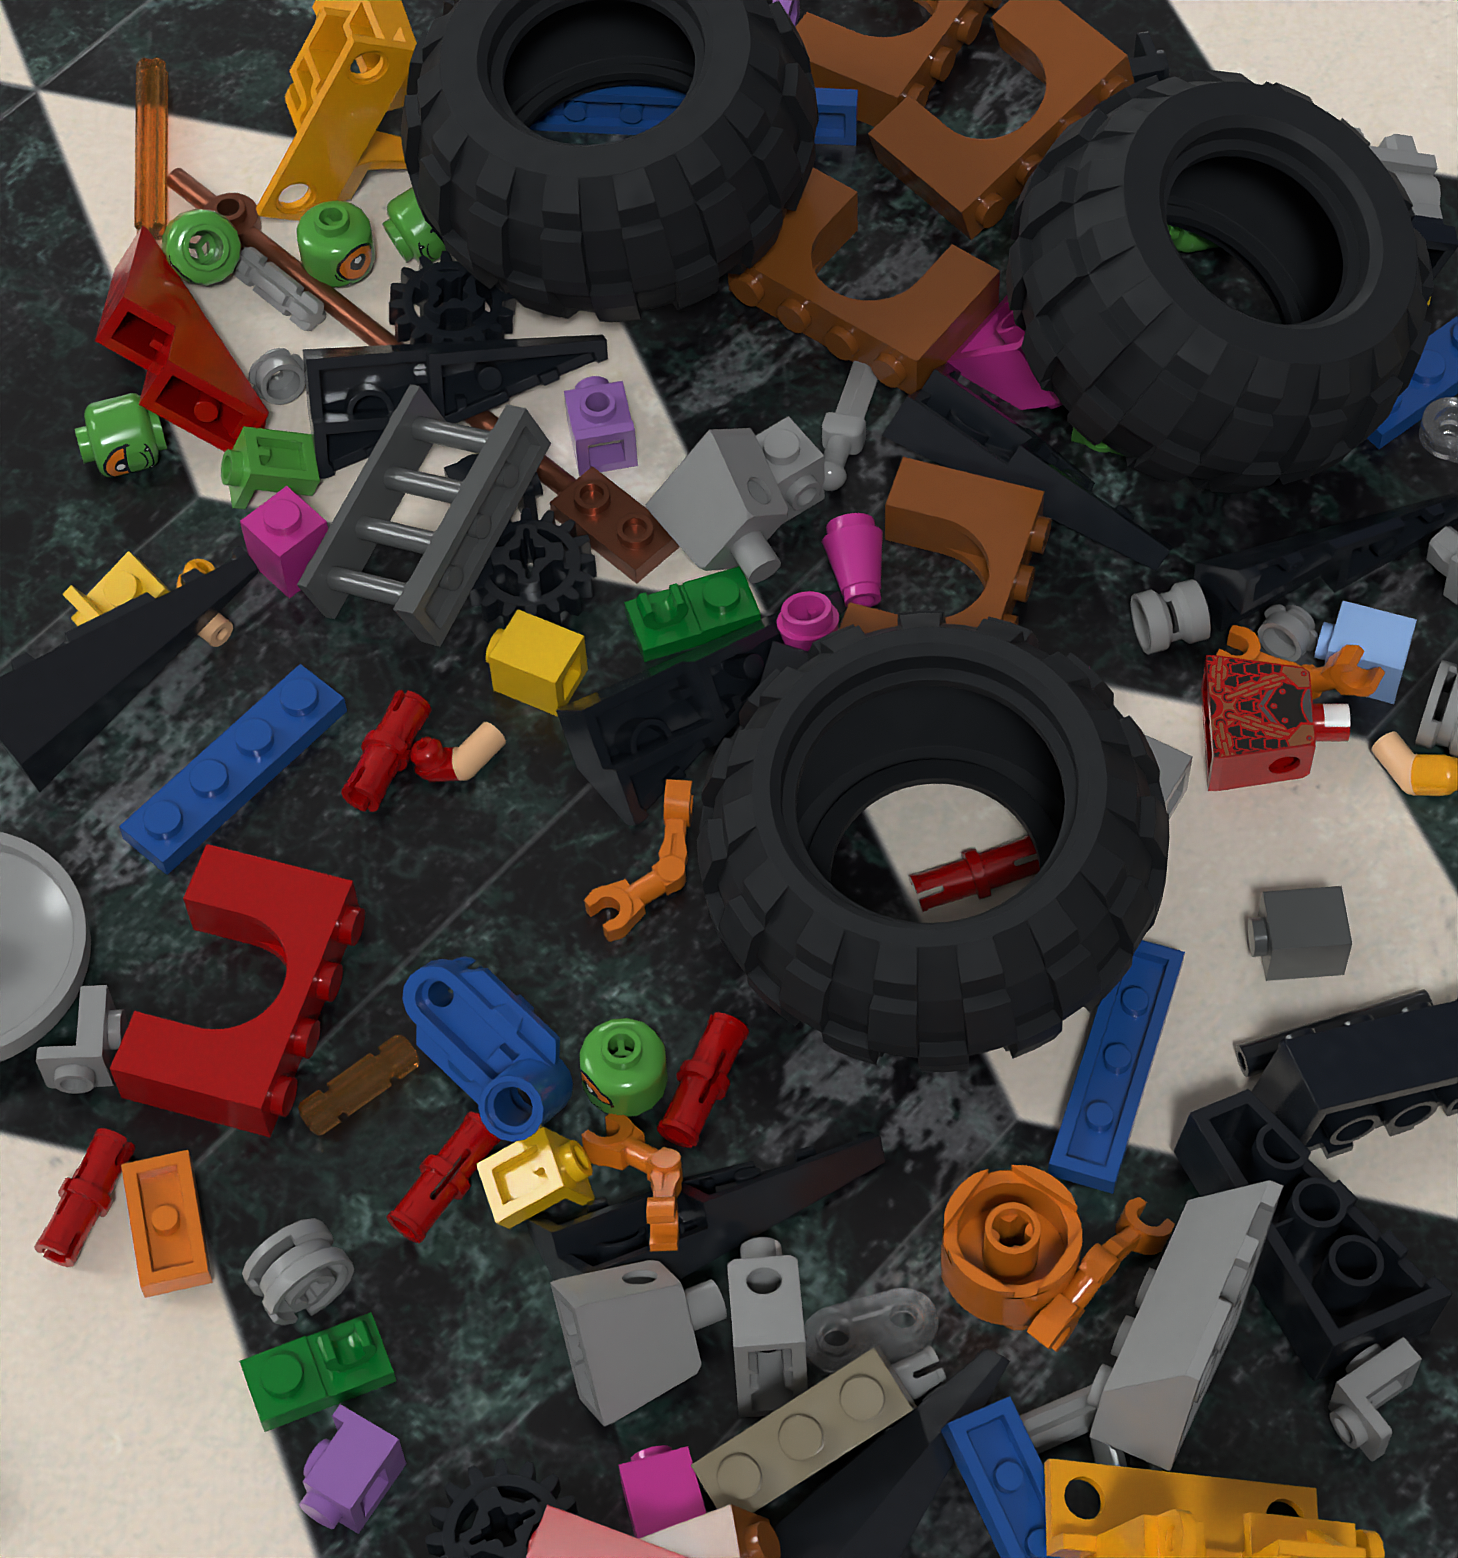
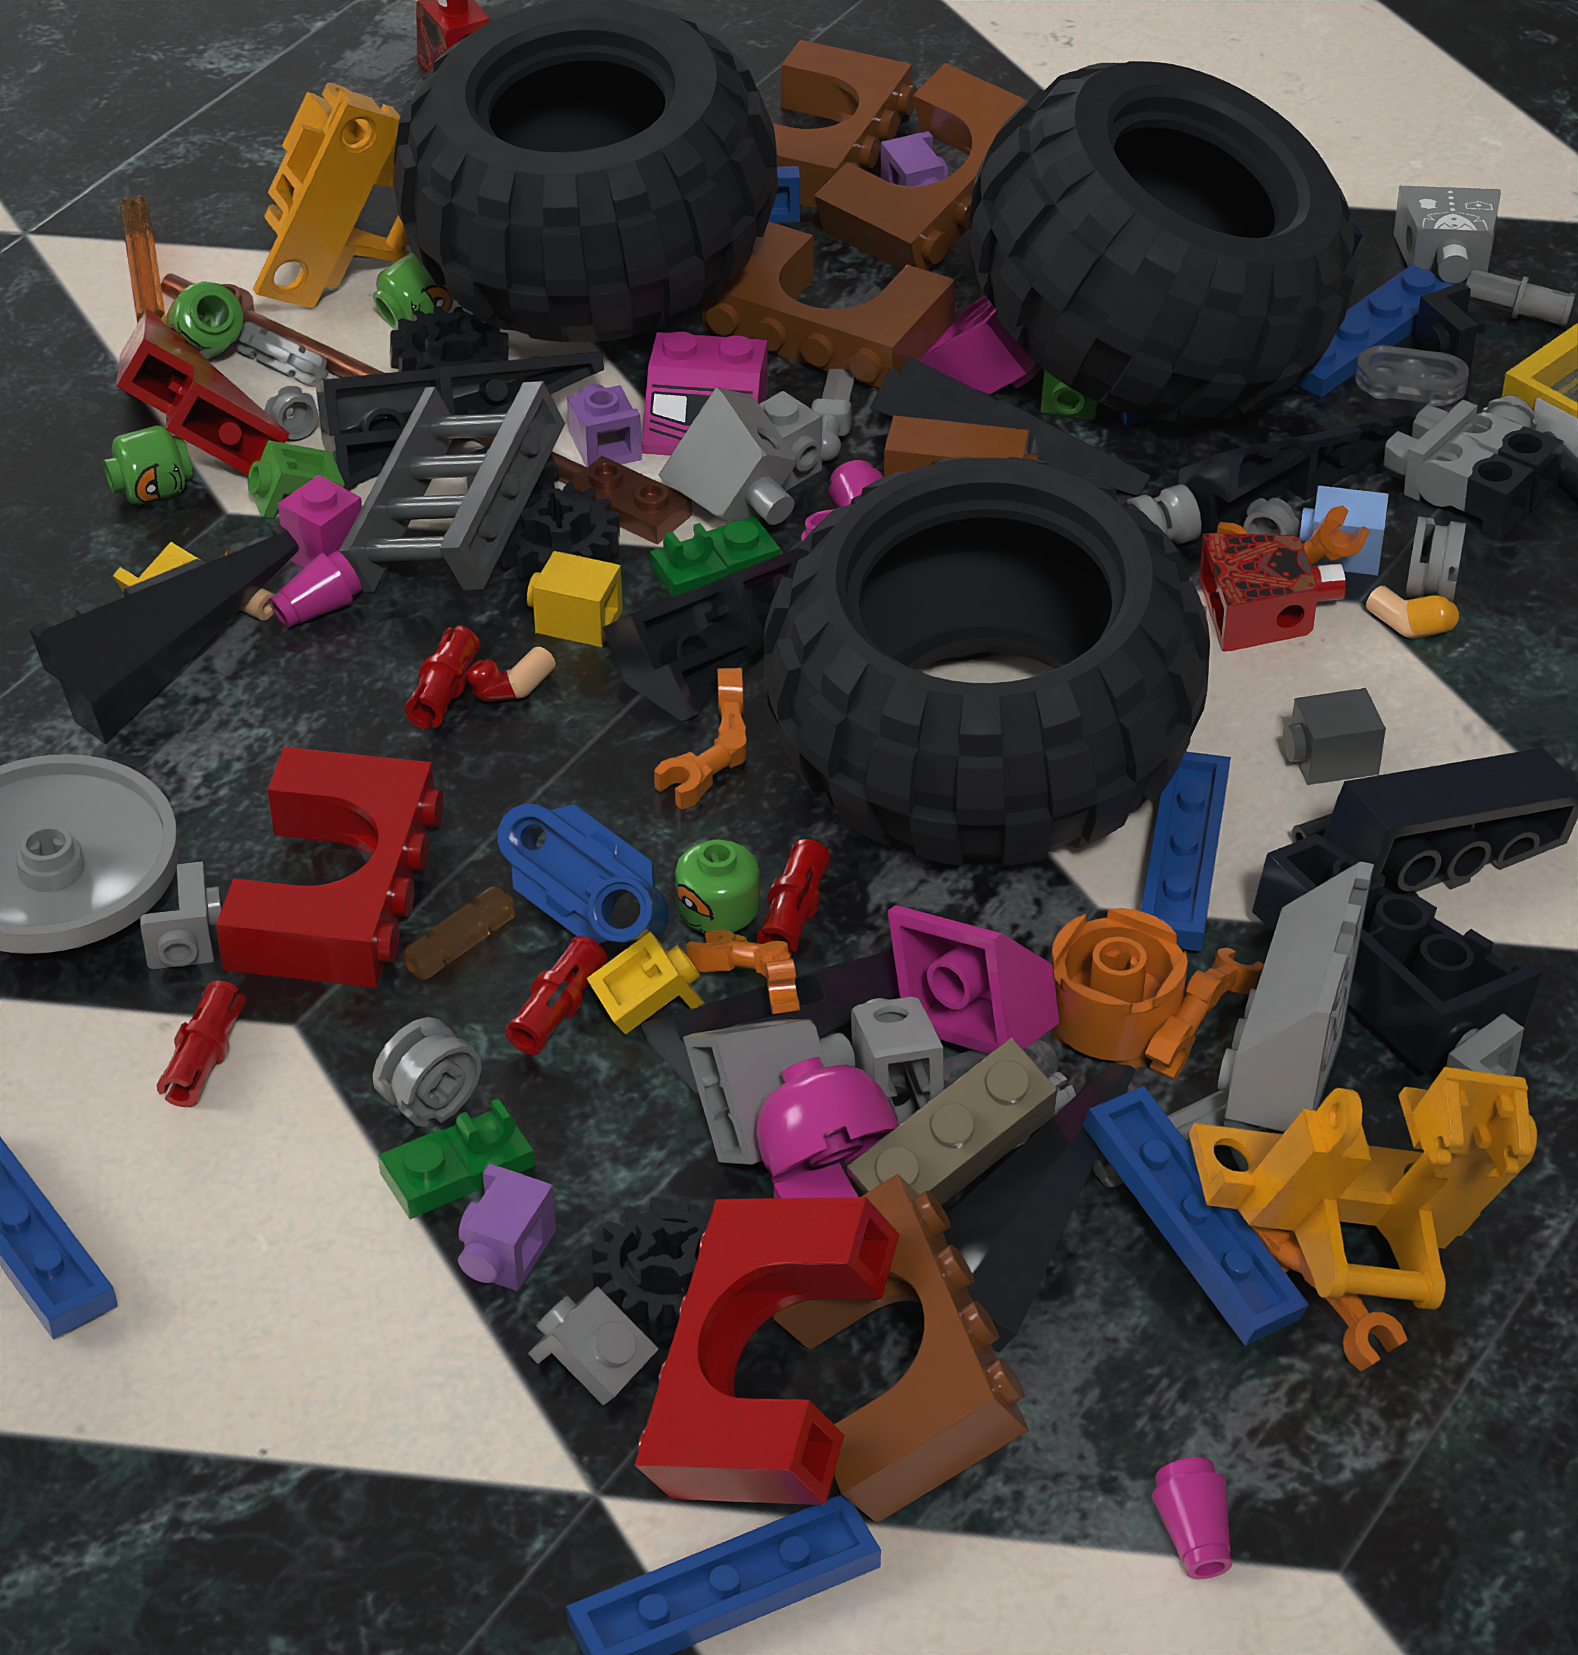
camera: 10 degrees left, 15 degrees down
(166, 1223) = (287, 1054): orange plate -> none
(233, 769) = (293, 707): blue plate -> none
(271, 622) = (316, 590): none -> dark pink cone
(336, 243) = (332, 309): bright green head -> none
(676, 1400) = (821, 1118): none -> dark pink cylinder
(708, 383) = (685, 374): none -> dark pink slope
(858, 1239) = (972, 981): none -> dark pink slope
(984, 97) = (912, 161): none -> medium lavender brick

